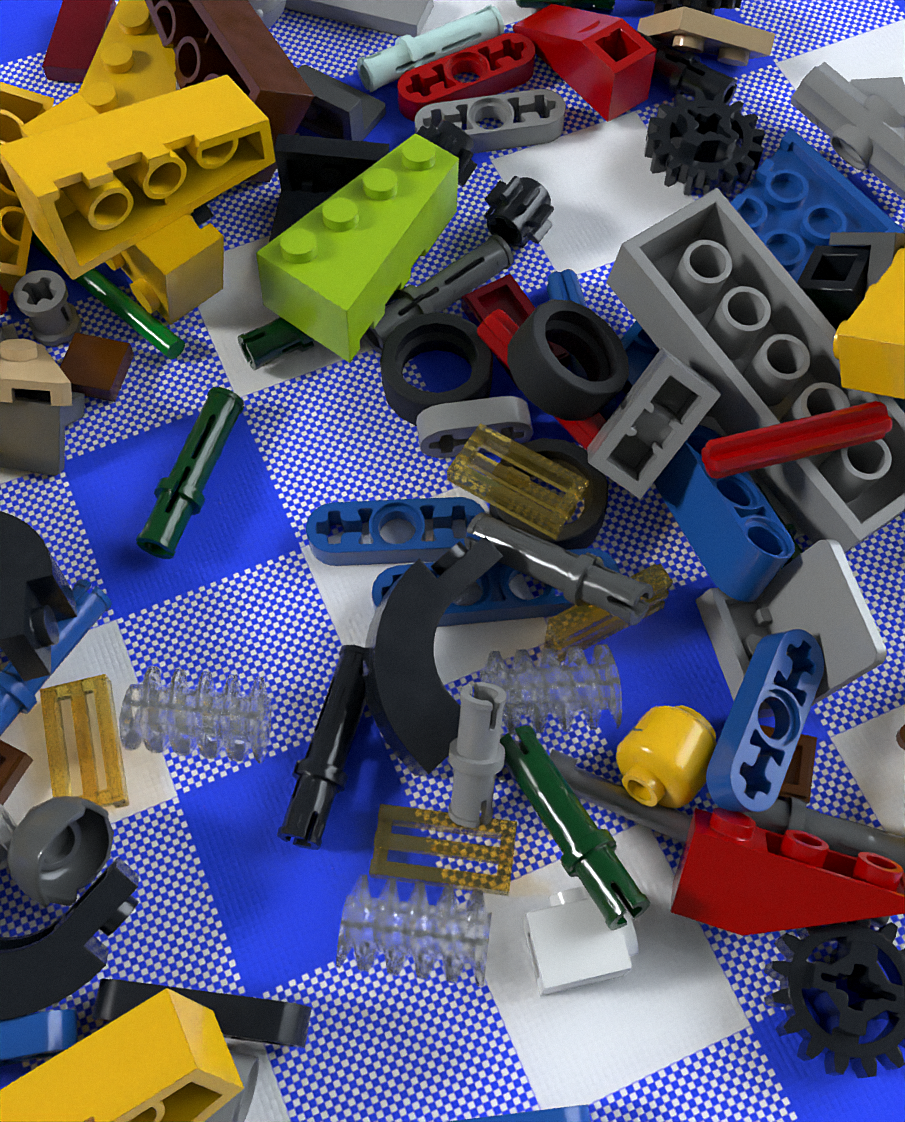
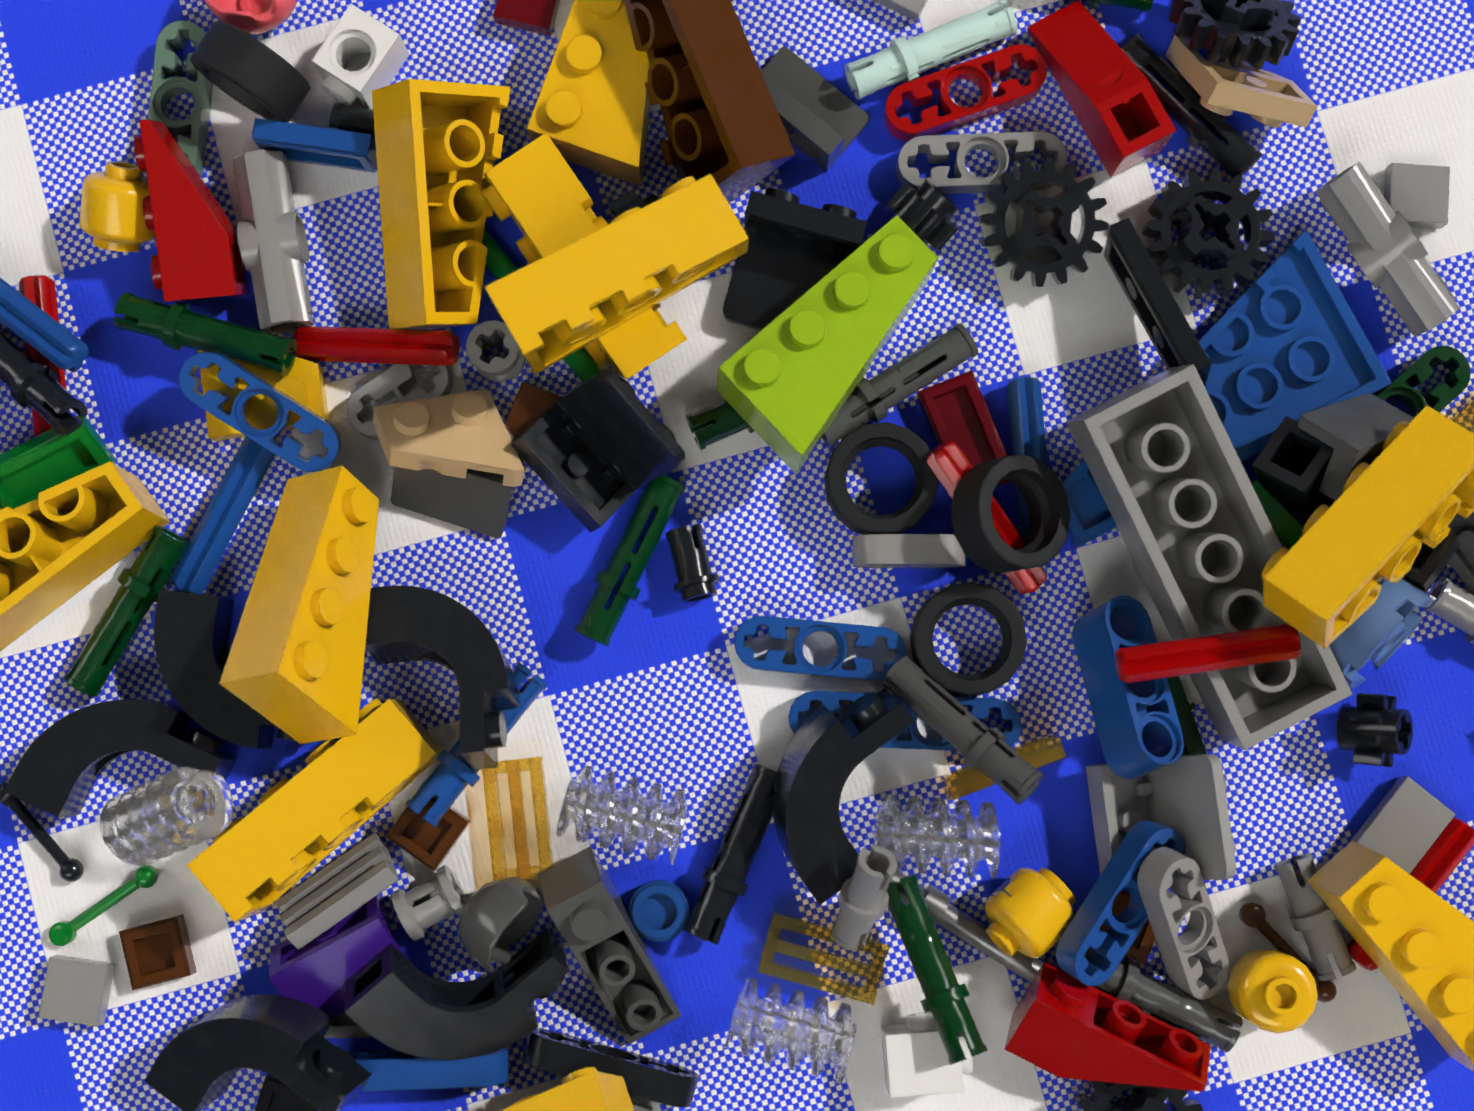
camera: 10 degrees right, 20 degrees up
(151, 357) = (598, 447): none -> black bracket
(193, 871) = (607, 945): none -> dark grey slope
(249, 823) = (659, 910): none -> blue tile
(260, 480) = (691, 564): none -> black pin
(506, 499) = (980, 666): clear yellow tile -> none
(519, 211) = (992, 300): black gear -> none
(553, 148) = (1063, 244): none -> black gear
(651, 423) = (1078, 600): light grey brick -> none
(654, 175) = (1153, 300): none -> black tile
(822, 695) = (1172, 870): none -> light grey beam

